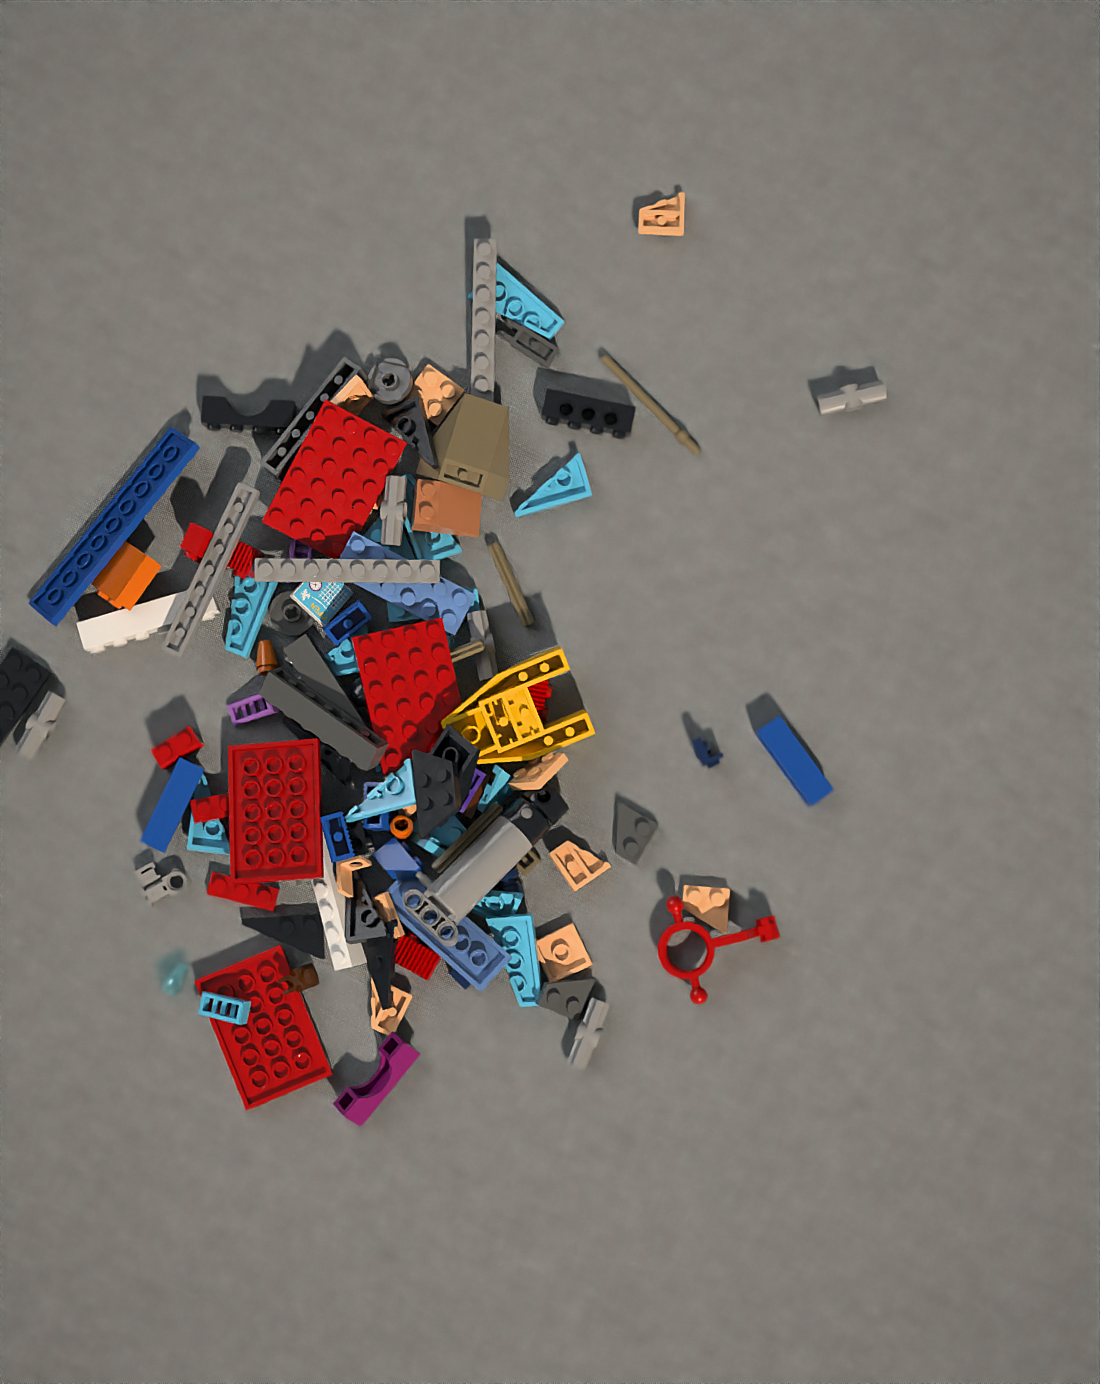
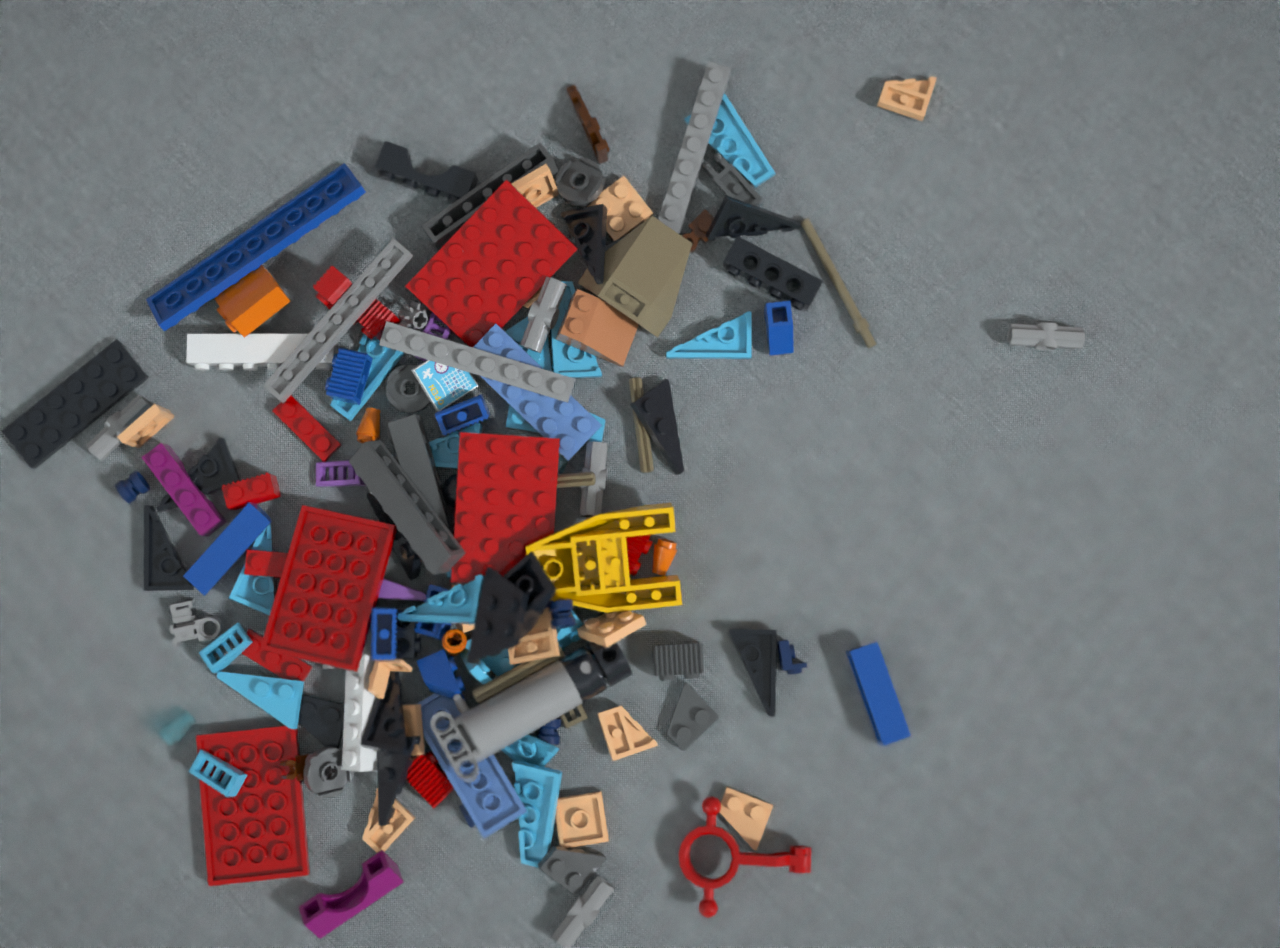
camera: 15 degrees right, 0 degrees up
(65, 717) = (146, 426): none -> light nougat tile
(68, 775) = (132, 487): none -> dark blue wheel
(116, 764) = (191, 501): none -> magenta arch
(116, 837) = (161, 562): none -> black wing
(132, 747) = (210, 473): none -> black wing
(182, 902) = (207, 653): none -> medium azure slope
(210, 676) = (307, 428): none -> red plate
(234, 618) = (348, 376): none -> blue brick
(252, 923) = (274, 695): none -> medium azure wing
(276, 546) = (413, 316): none -> light grey gear
(311, 977) = (314, 772): none -> dark grey plate
(338, 798) = (394, 590): none -> medium lavender slope
(384, 327) = (590, 125): none -> reddish brown wing
(477, 804) = (537, 643): none -> light nougat wing
(491, 772) = (561, 614): none -> dark blue wheel
(513, 391) = (699, 228): none -> reddish brown plate
(524, 573) = (658, 417): none -> black wing
(548, 371) = (741, 218): none -> black wing
(565, 695) = (663, 555): none -> orange cone
(606, 784) = (678, 660): none -> dark grey brick
(609, 460) = (779, 328): none -> blue slope
(677, 759) = (758, 655): none -> black wing

